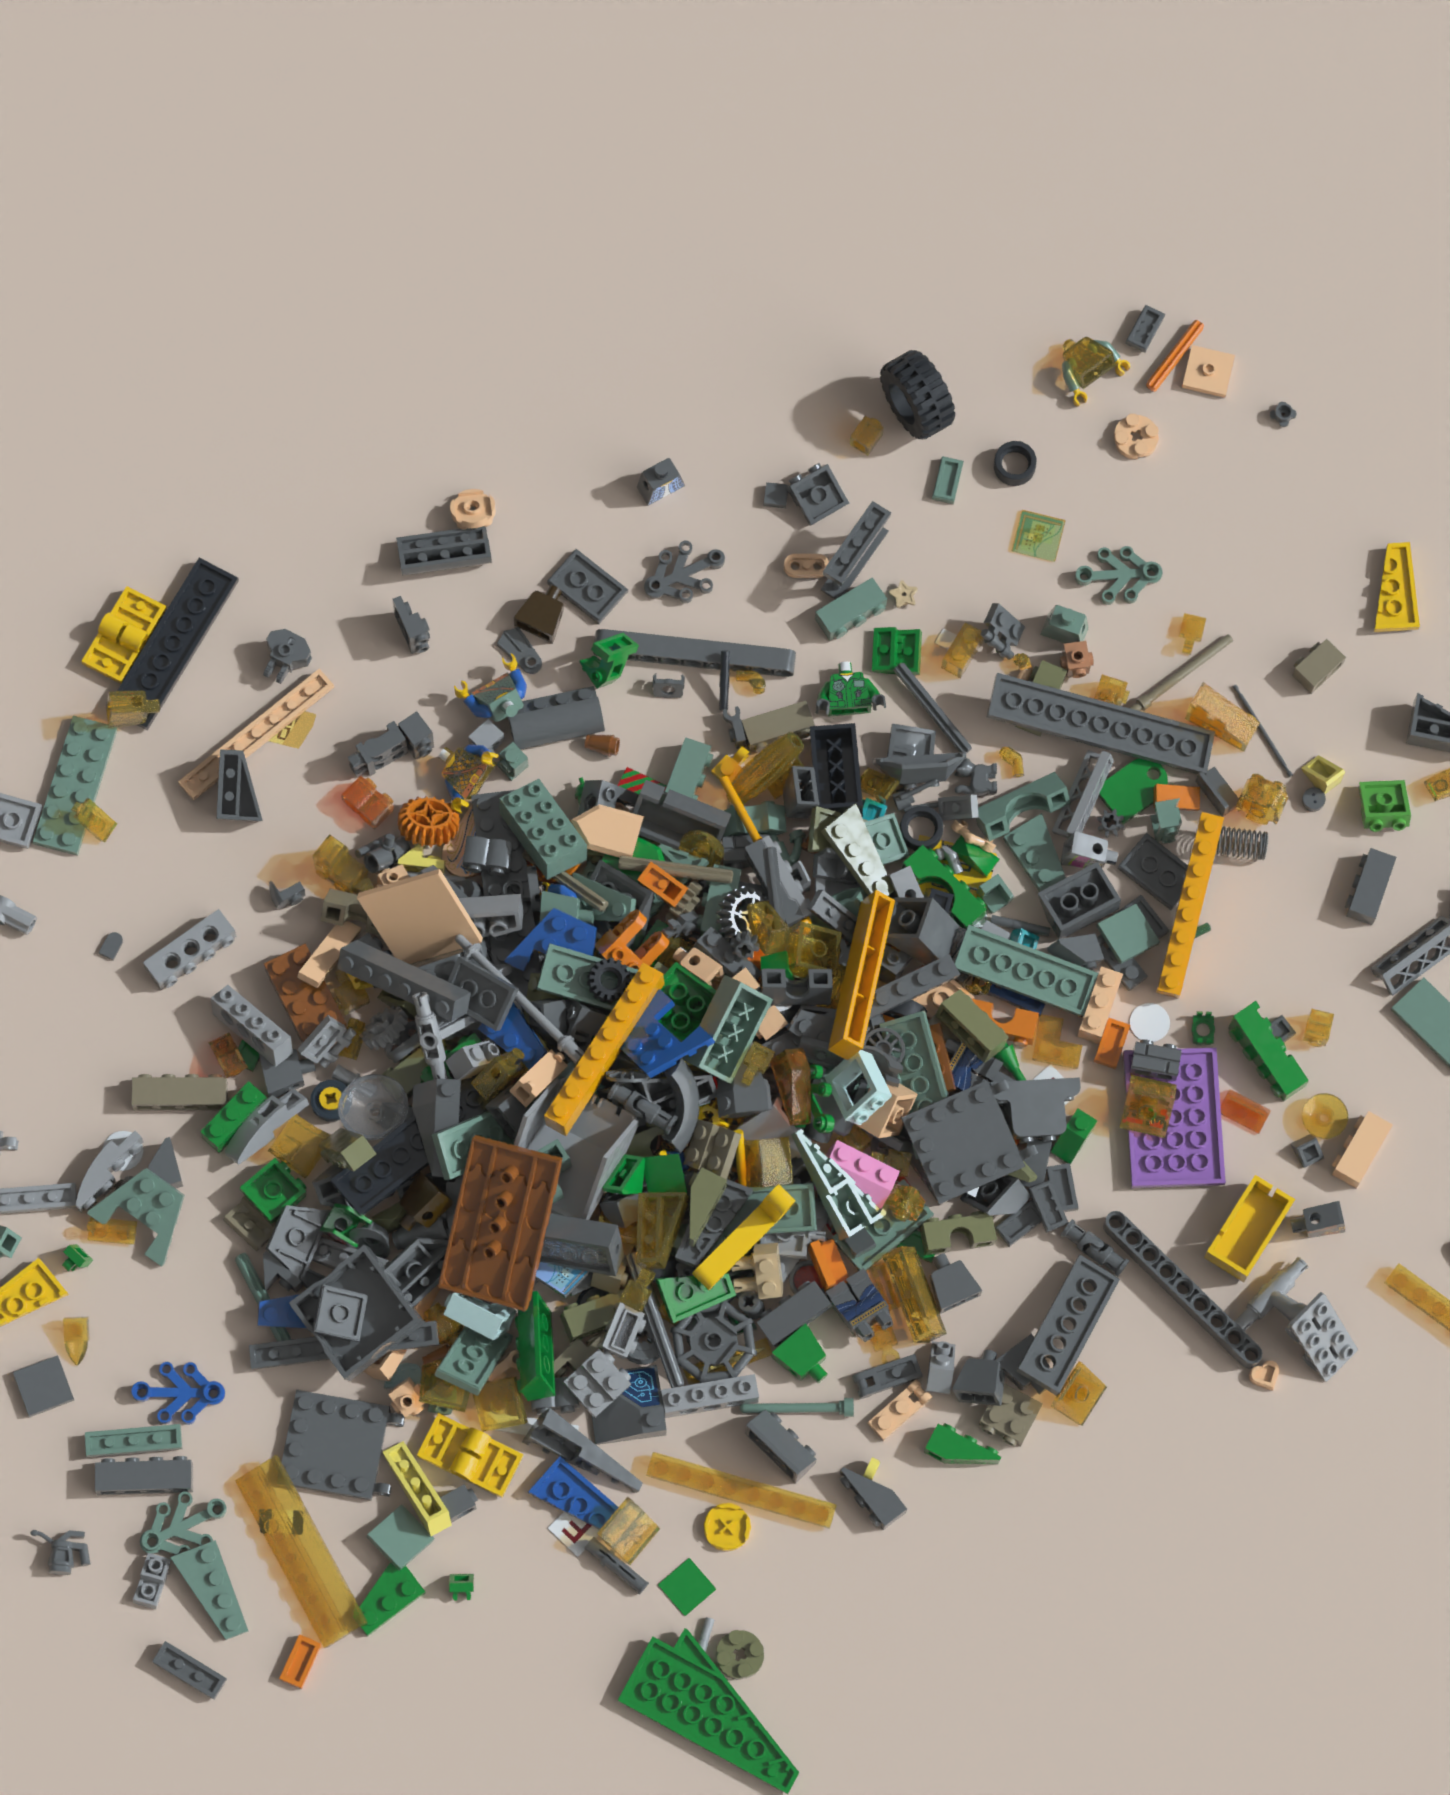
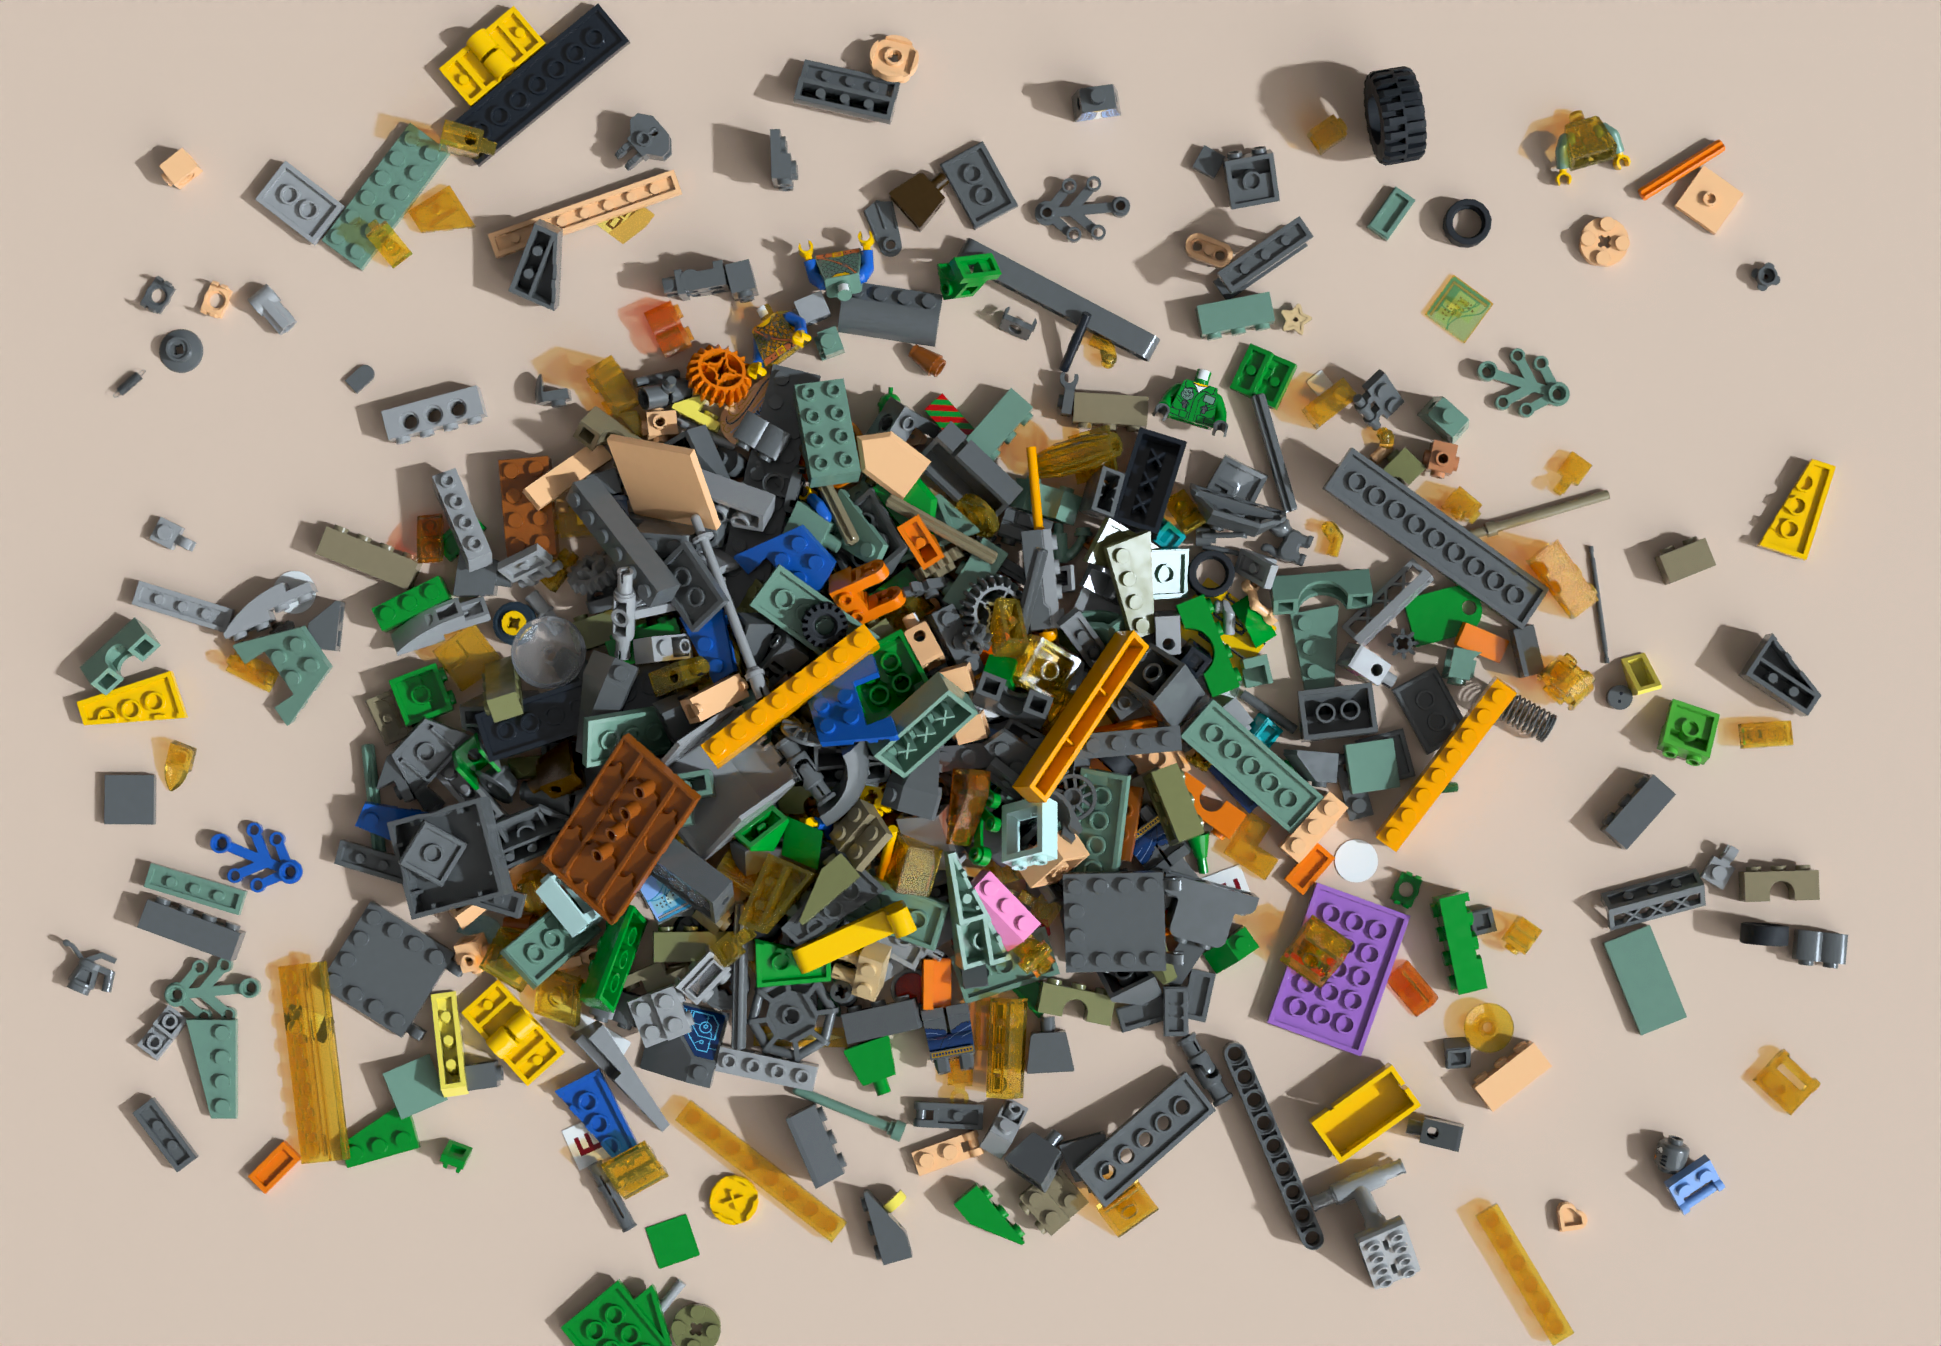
camera: 25 degrees right, 15 degrees up
(77, 1258) = (207, 685): green tile -> none
(129, 780) = (441, 212): none -> clear yellow wing
(730, 767) = (1043, 434): yellow plate -> none
(758, 1060) = (938, 767): clear yellow plate -> none
(1145, 328) = (1663, 129): dark grey plate -> none
(1155, 1060) = (1343, 908): dark grey brick -> none
(1265, 1375) = (1319, 1259): light nougat tile -> none

